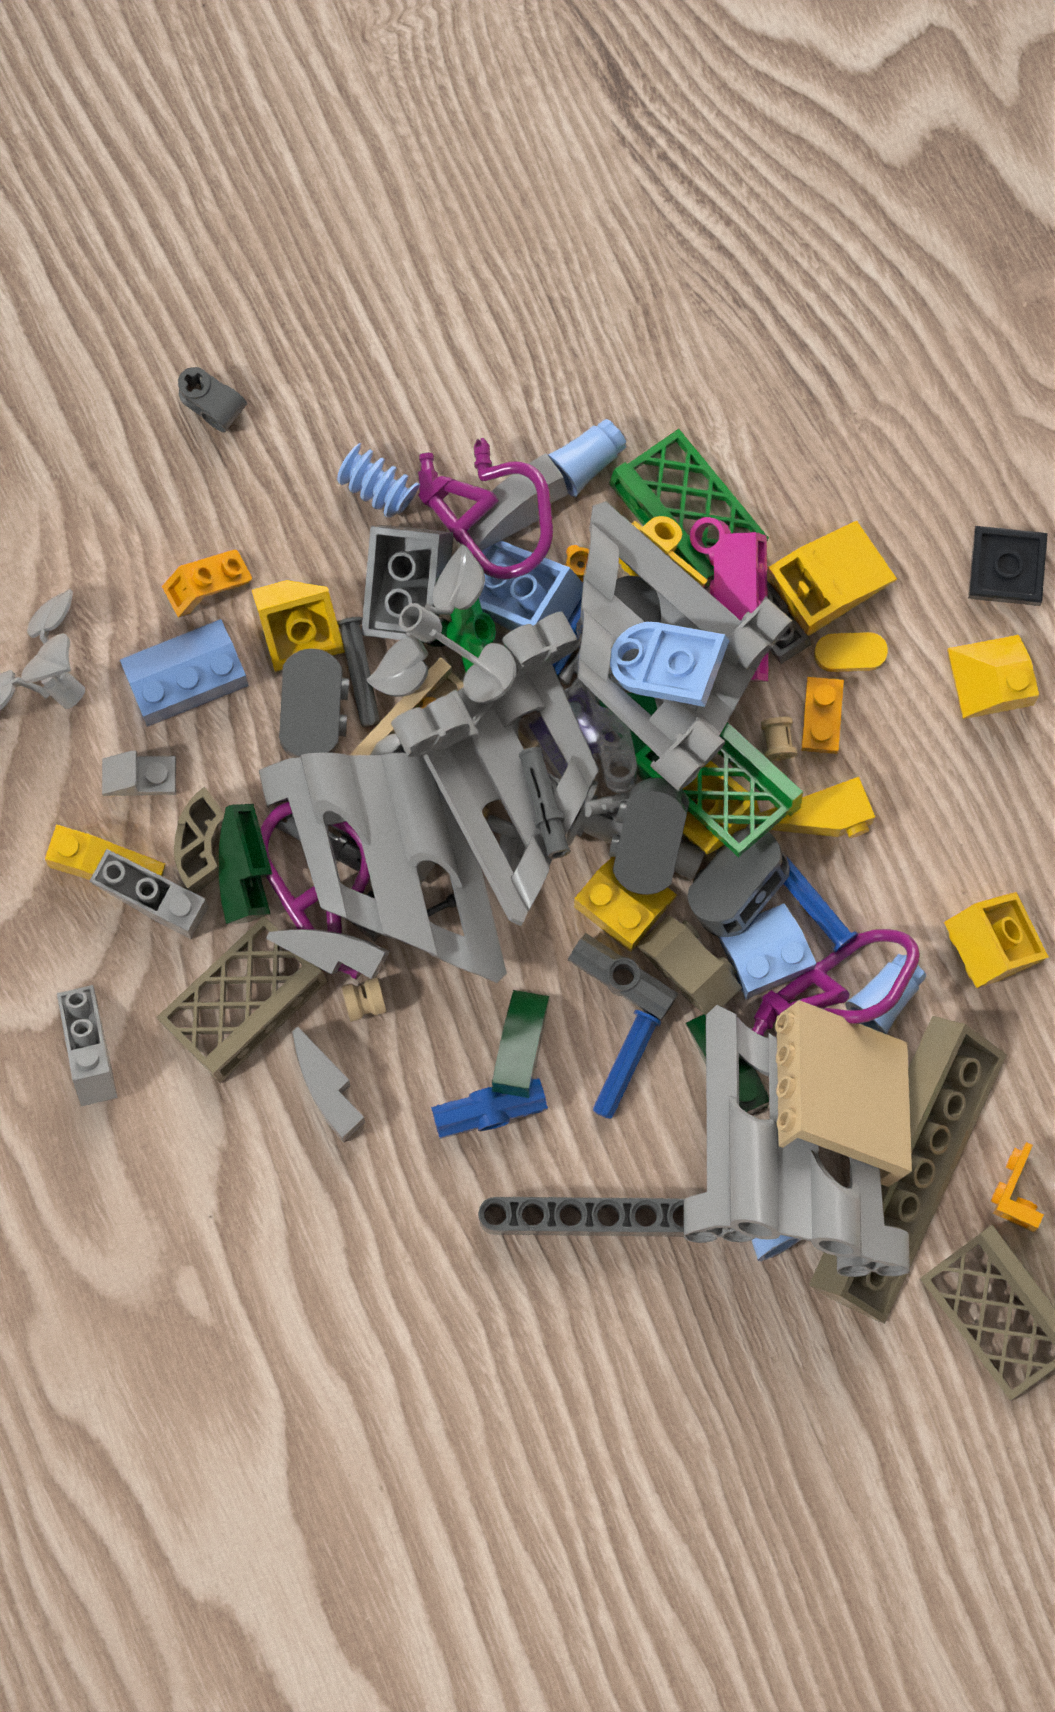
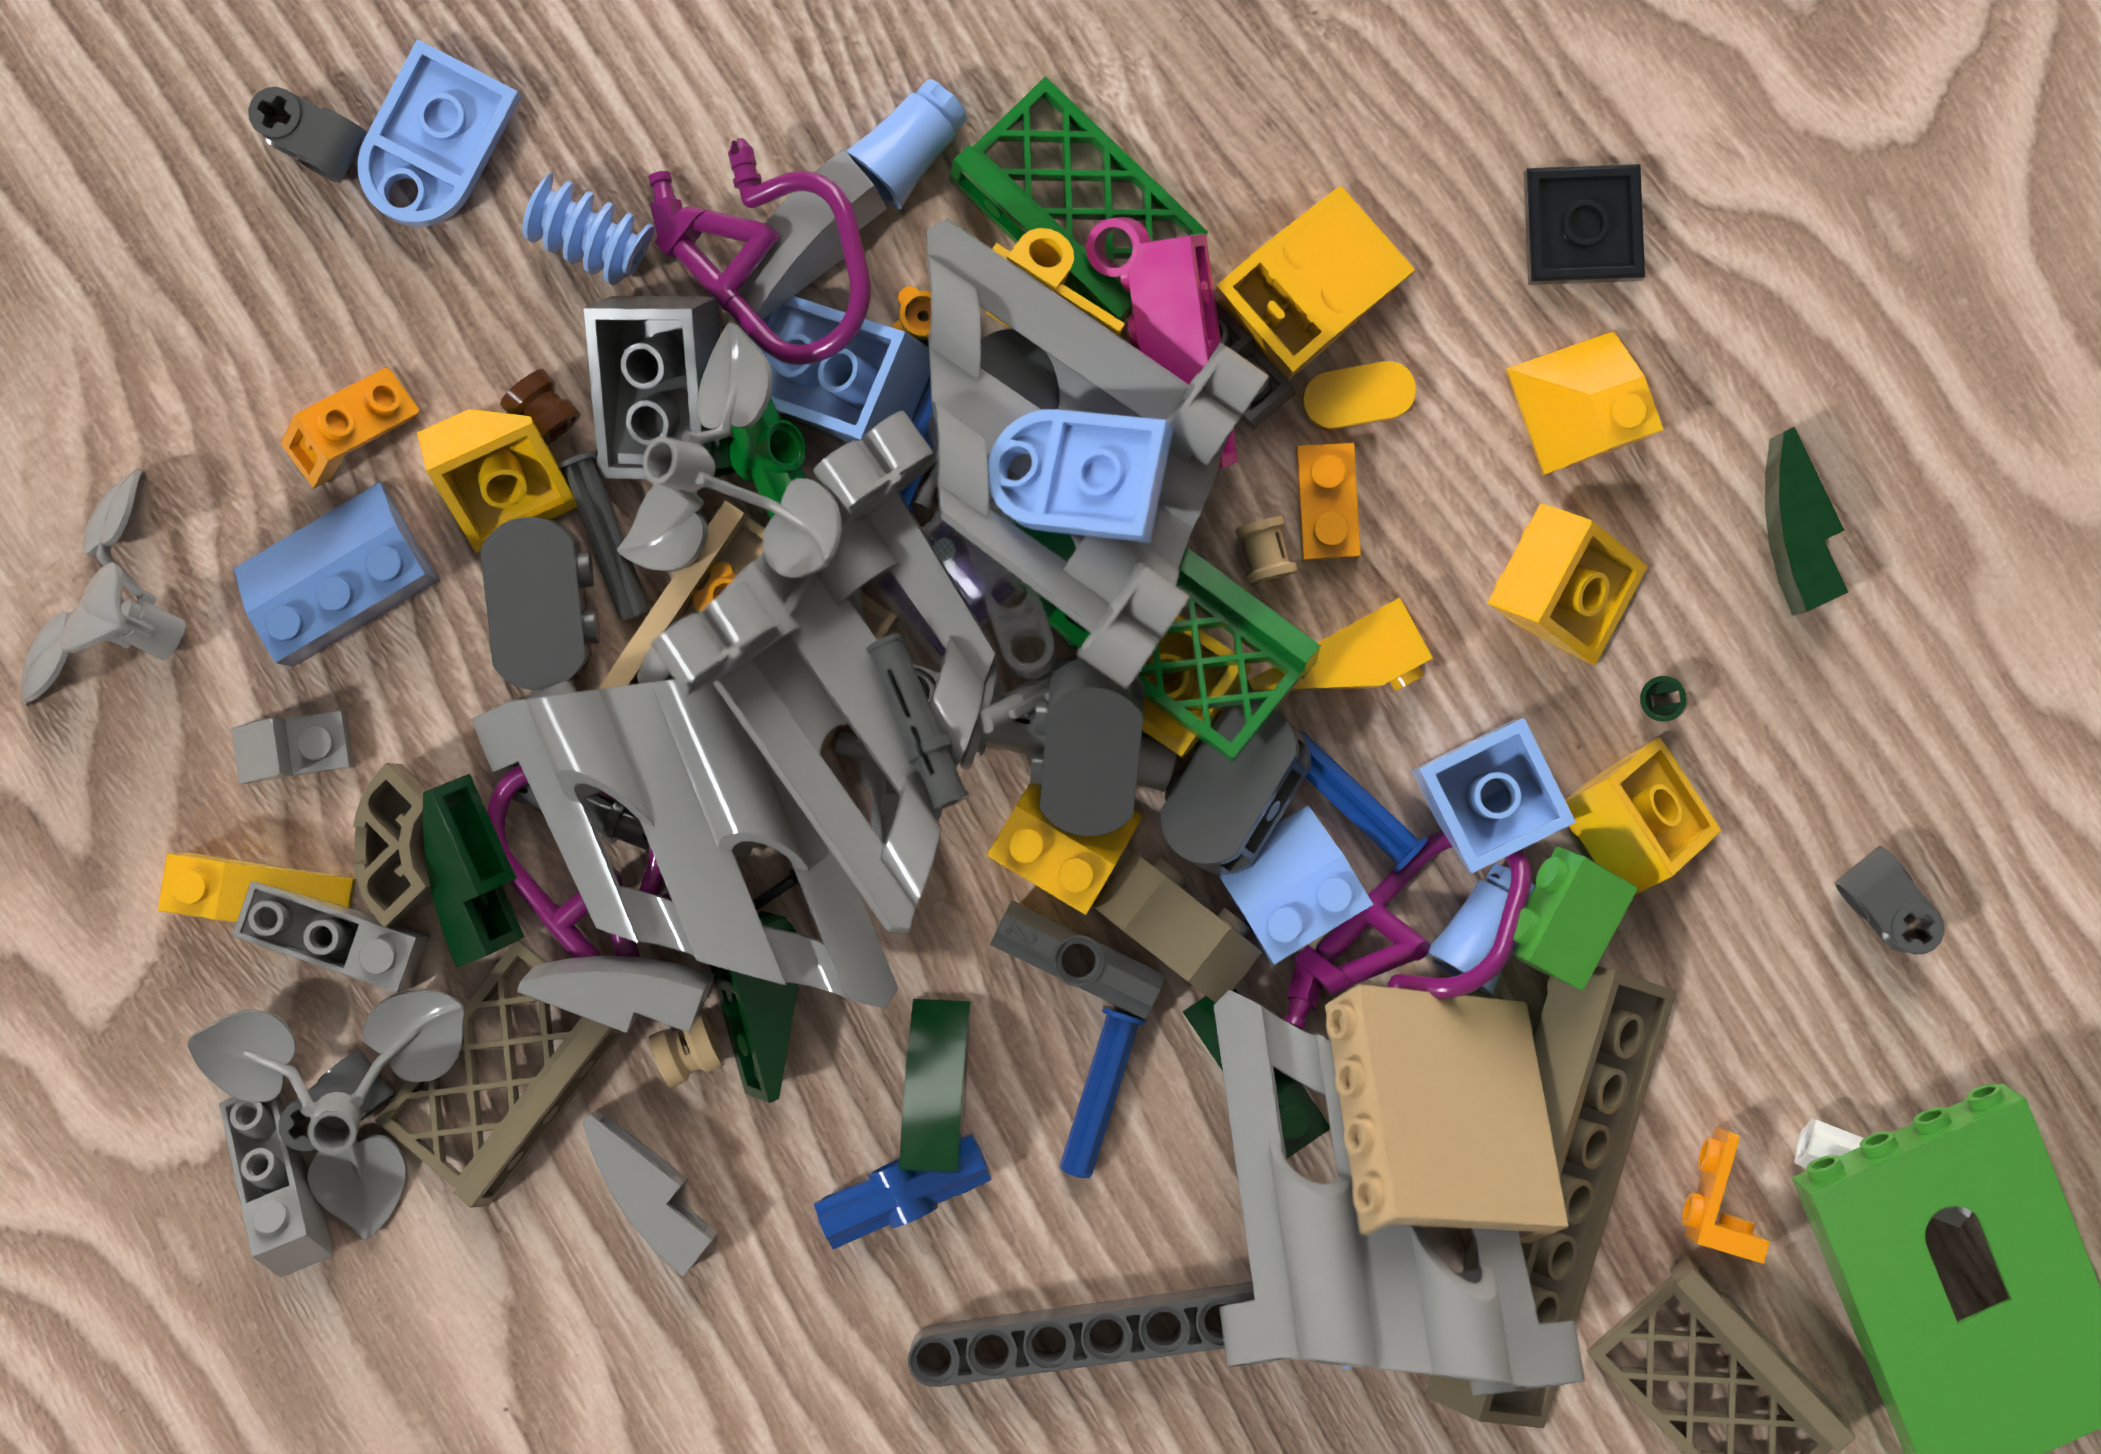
camera: 10 degrees left, 10 degrees up
(138, 998) = (343, 1078): none -> dark grey piece
(139, 1051) = (348, 1177): none -> light grey plant
(290, 410) = (436, 131): none -> light blue plate
(330, 576) = (535, 398): none -> reddish brown wheel
(412, 984) = (758, 1022): none -> dark green slope
(902, 906) = (1493, 795): none -> light blue slope
(938, 986) = (1570, 917): none -> bright green slope
(969, 785) = (1568, 583): none -> yellow slope
(1020, 859) = (1660, 686): none -> dark green hinge

